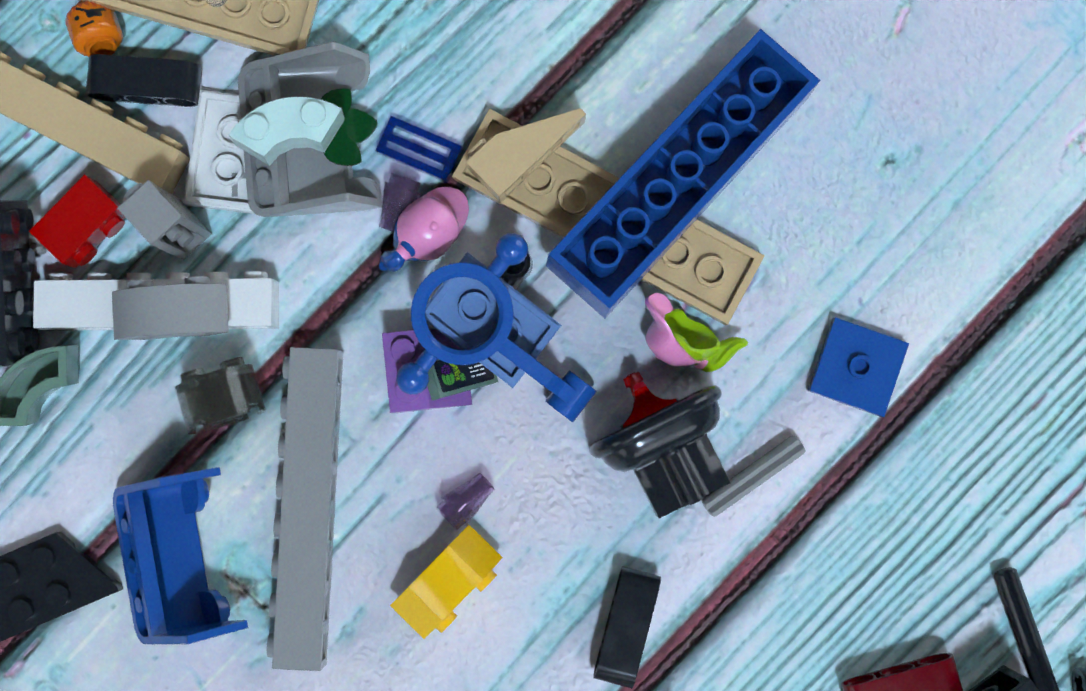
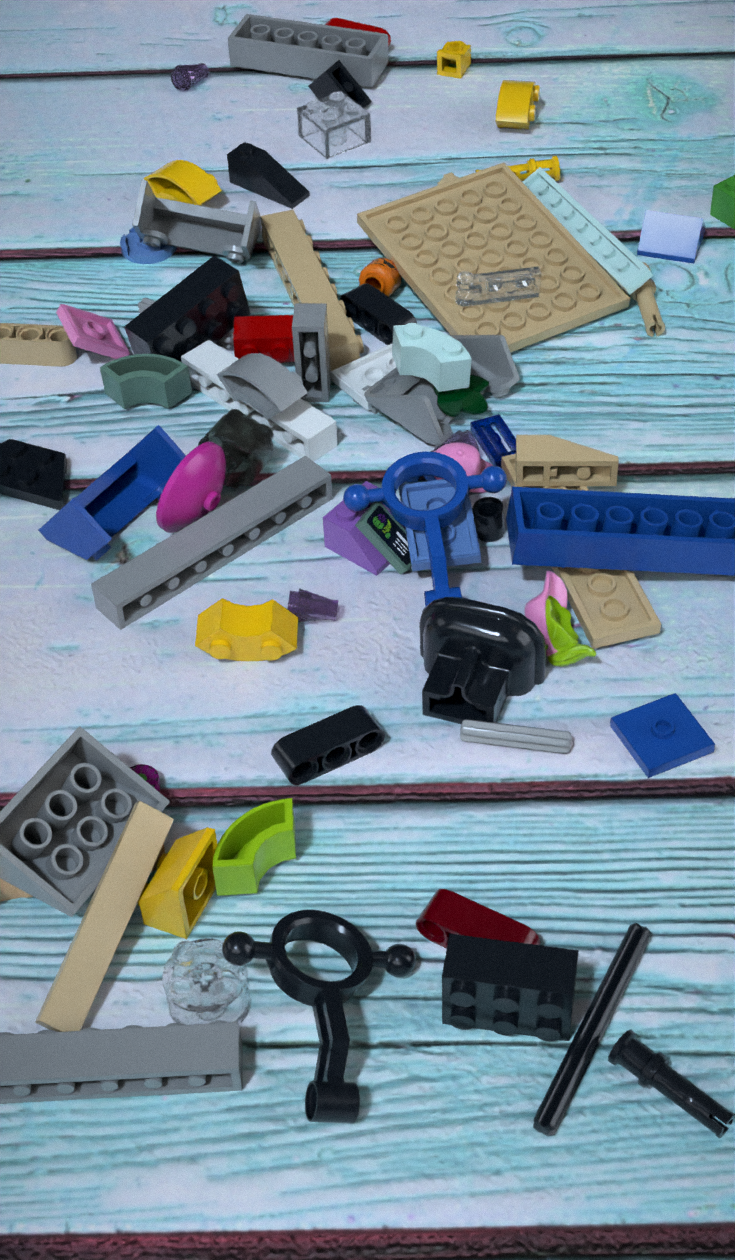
camera: 45 degrees right, 40 degrees down
(254, 490) = (192, 488): none -> dark pink dish

